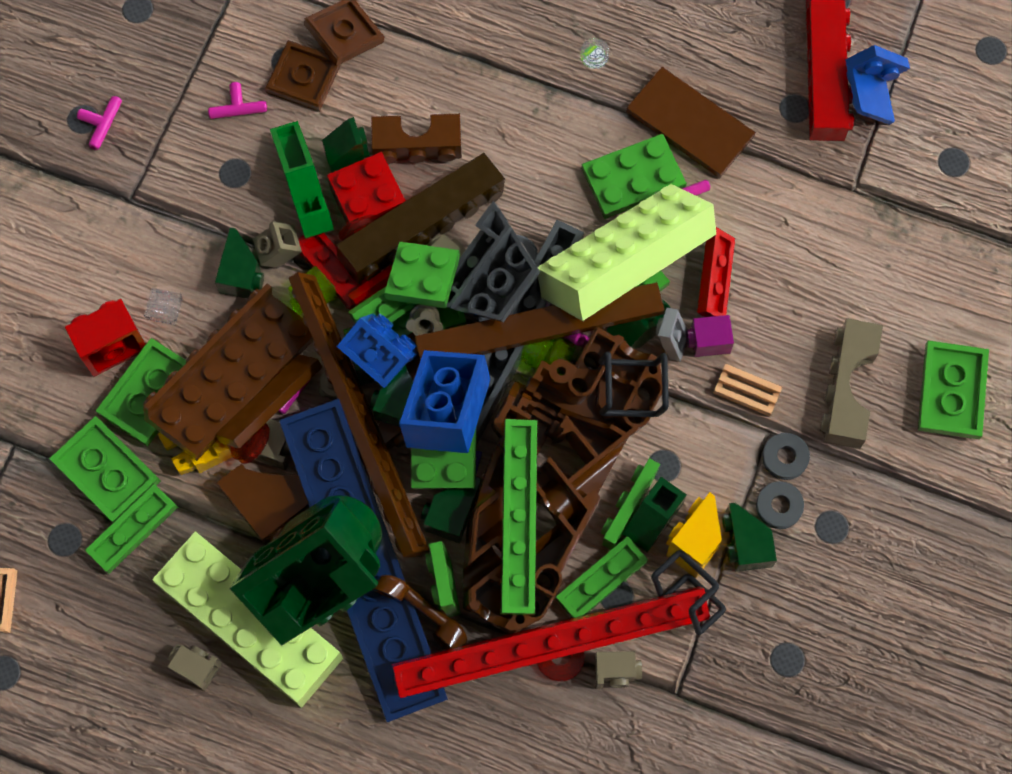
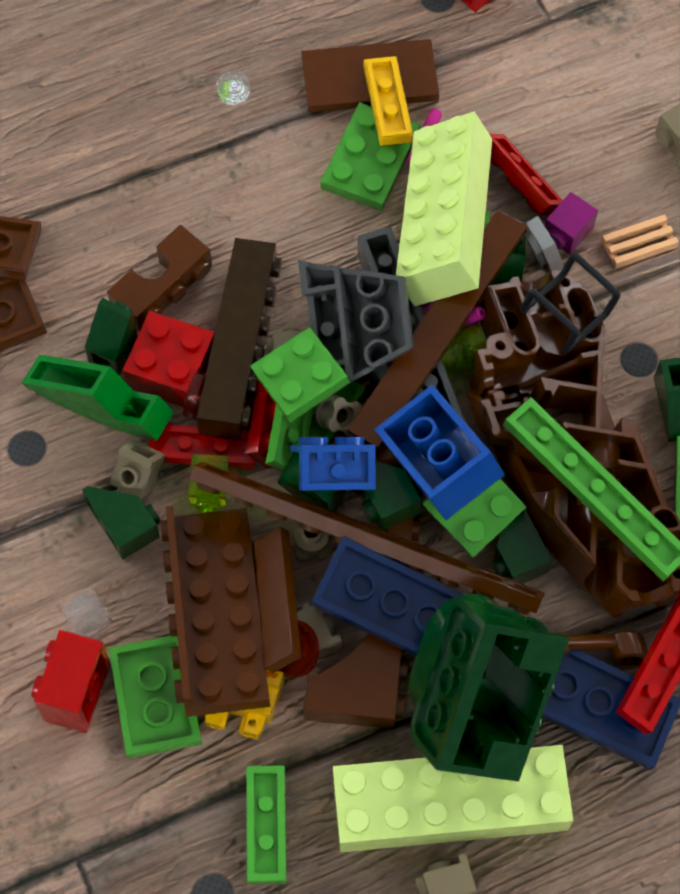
camera: 45 degrees left, 5 degrees down
(104, 469) = (187, 798): bright green plate -> none
(444, 591) = (571, 599): bright green plate -> none
(629, 503) = (651, 410): bright green plate -> none
(678, 148) = (388, 101): none -> yellow tile

